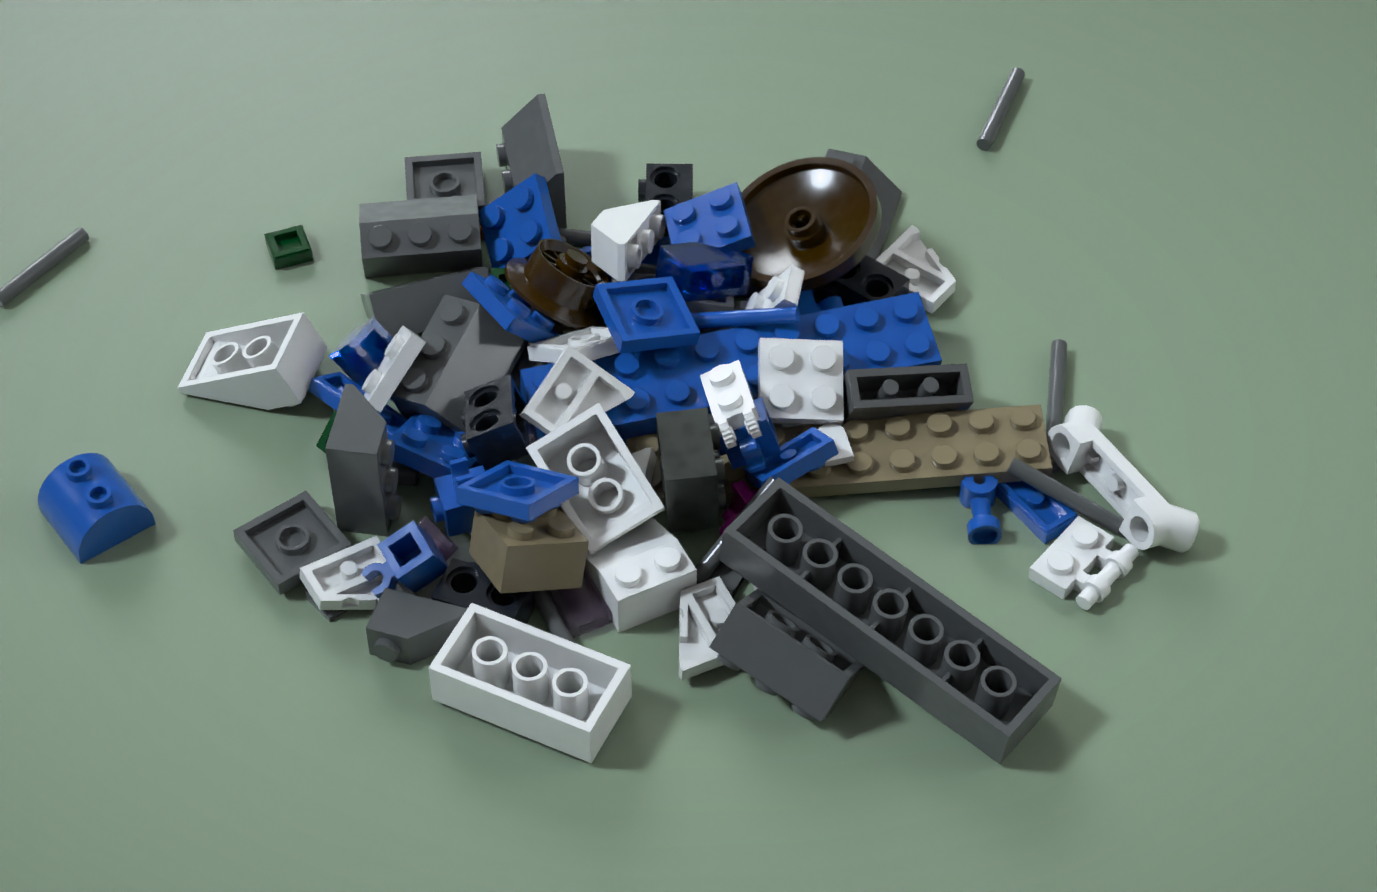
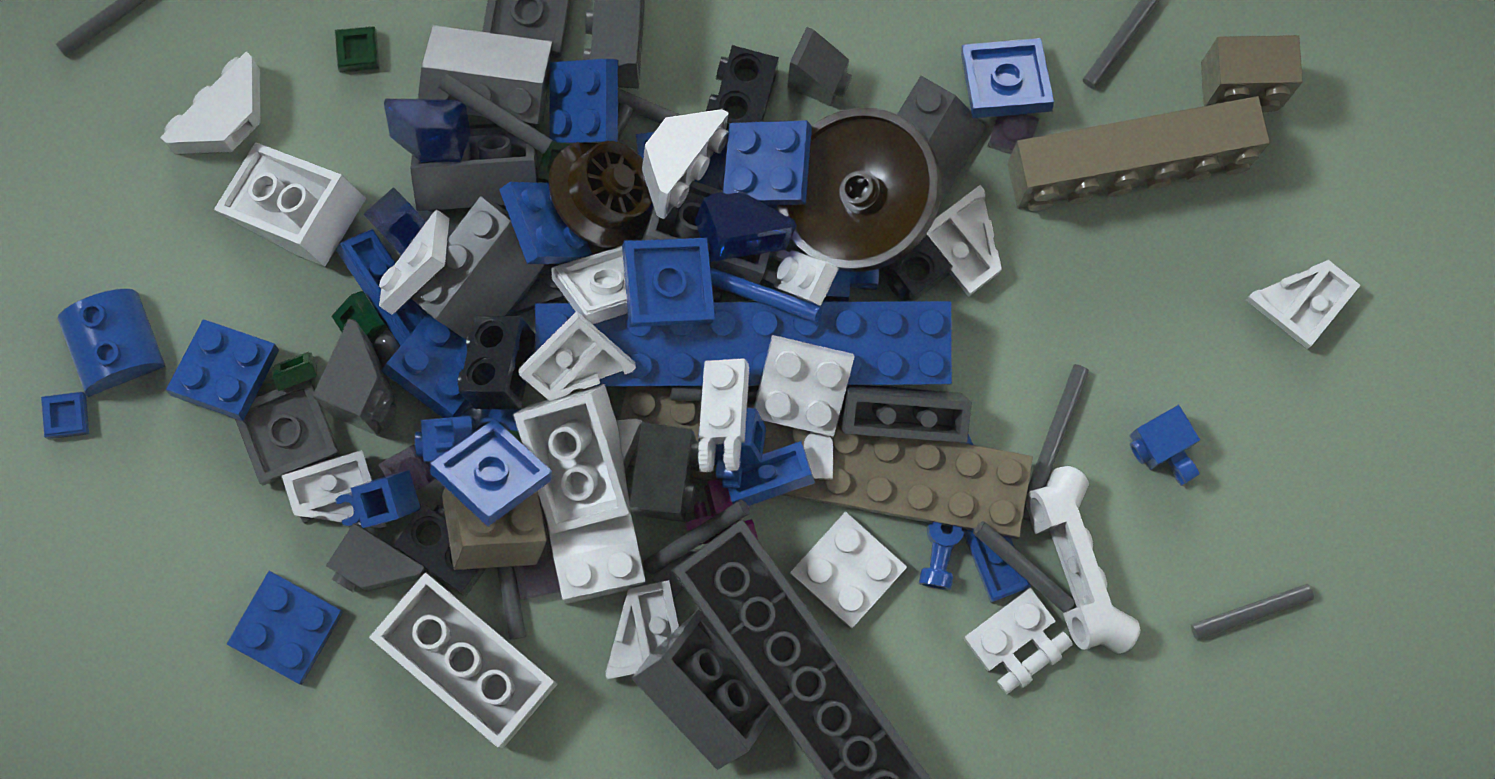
camera: 10 degrees right, 30 degrees up
(60, 579) = (65, 415): none -> blue tile
(165, 315) = (220, 113): none -> white slope
(217, 503) = (222, 370): none -> blue plate
(291, 487) = (294, 371): none -> dark green tile
(333, 708) = (285, 627): none -> blue plate
(375, 268) = (429, 128): none -> clear blue slope
(439, 241) = (495, 113): none -> dark grey bar
(729, 159) = (818, 69): none -> dark grey slope
(903, 533) = (848, 570): none -> white plate
(908, 147) = (1007, 78): none -> plate
(927, 190) = (1010, 129): none -> clear purple plate
(1045, 168) = (1137, 153): none -> dark tan brick
(1126, 95) = (1252, 68): none -> dark tan brick
(1164, 375) = (1166, 440): none -> blue brick
(1246, 253) = (1306, 301): none -> white wing
(1300, 495) = (1252, 611): none -> dark grey bar

